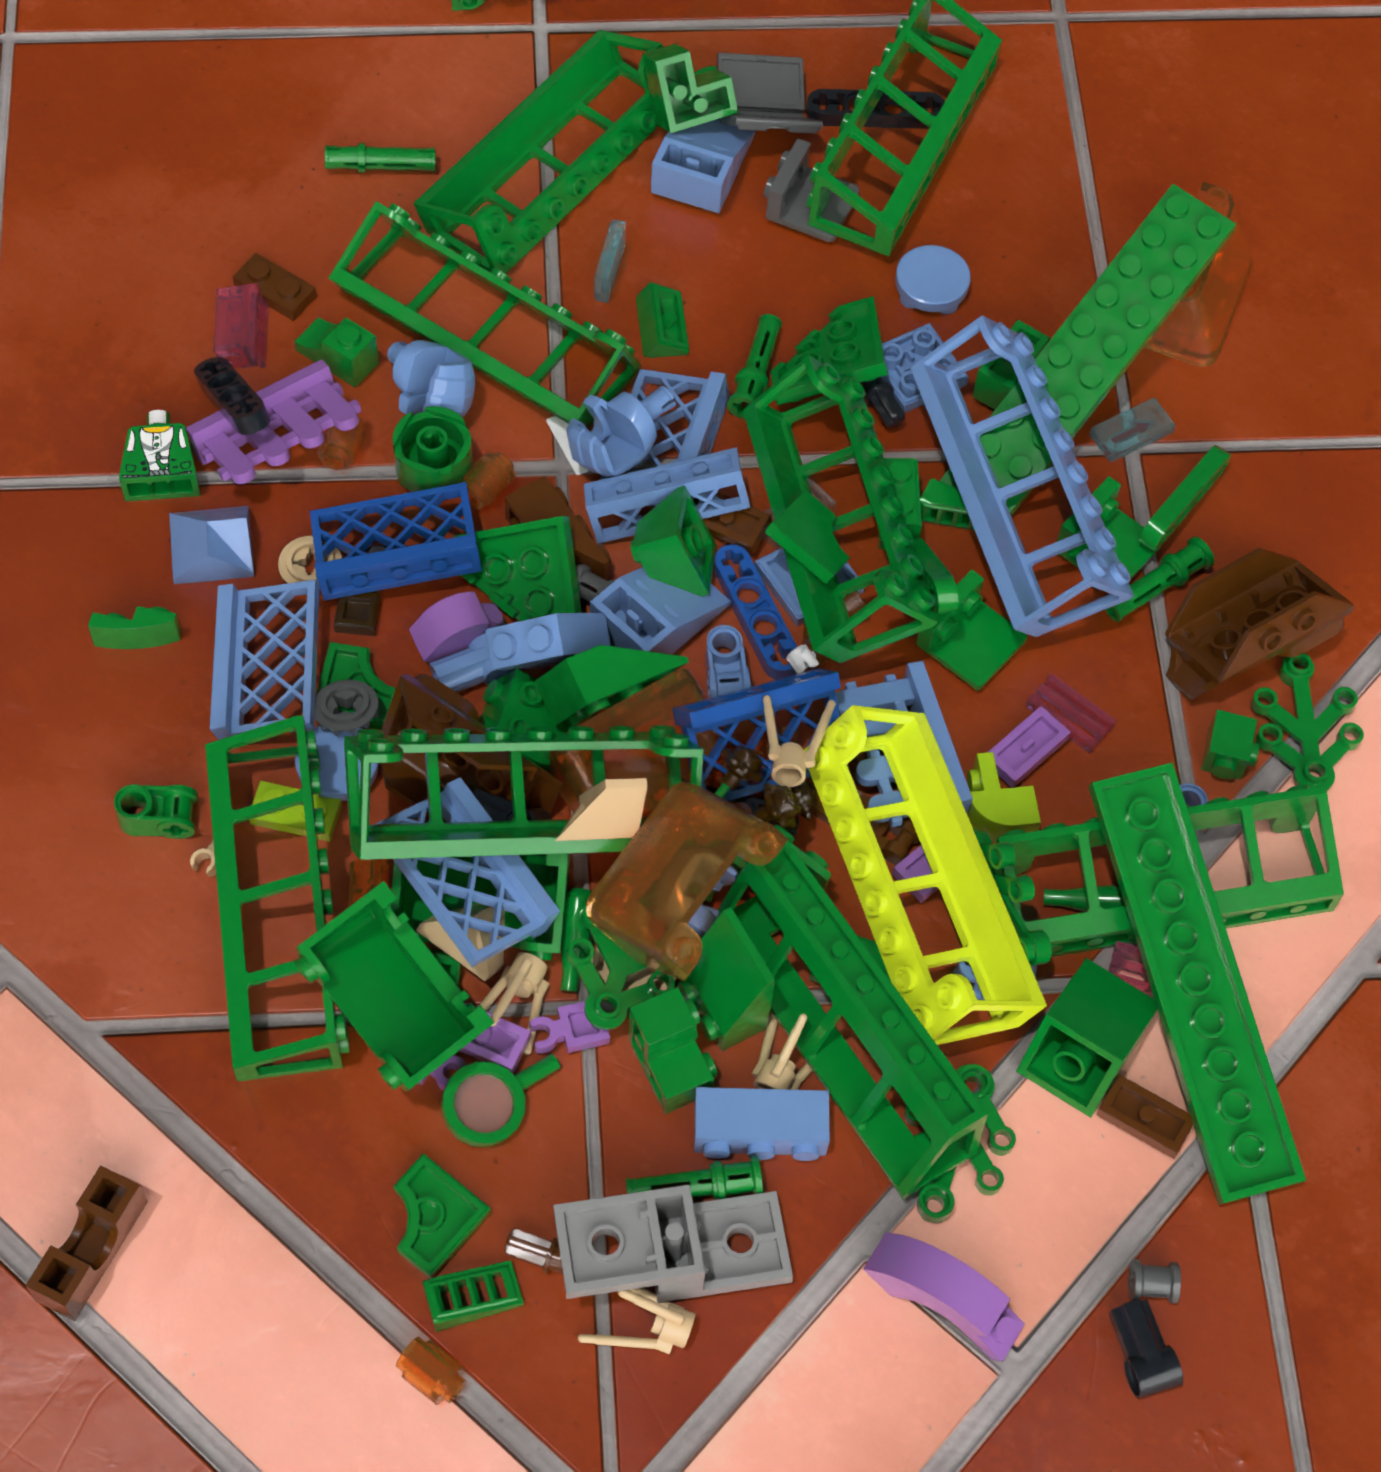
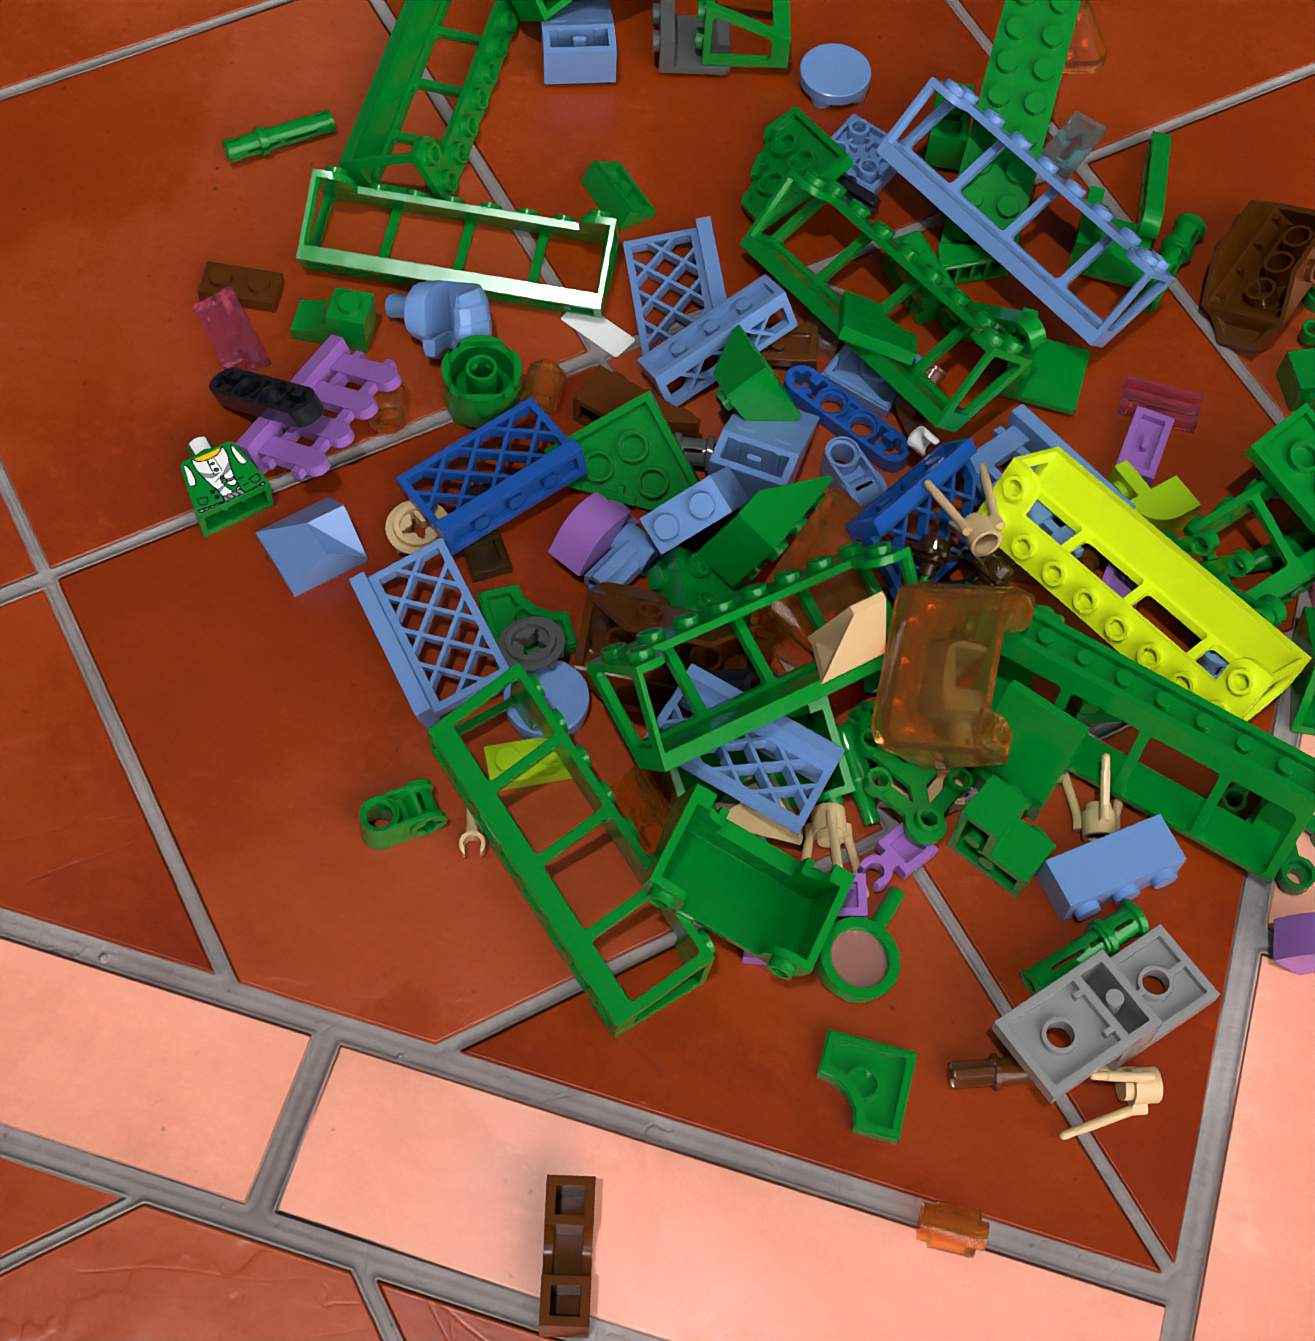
camera: 25 degrees left, 0 degrees up
(147, 629) = (300, 645): green slope -> none
(452, 1282) = (919, 1165): green slope -> none
(609, 261) = (544, 155): clear light blue tile -> none
(620, 433) = (645, 301): medium blue piece -> none
(745, 391) = (729, 215): green pin -> none

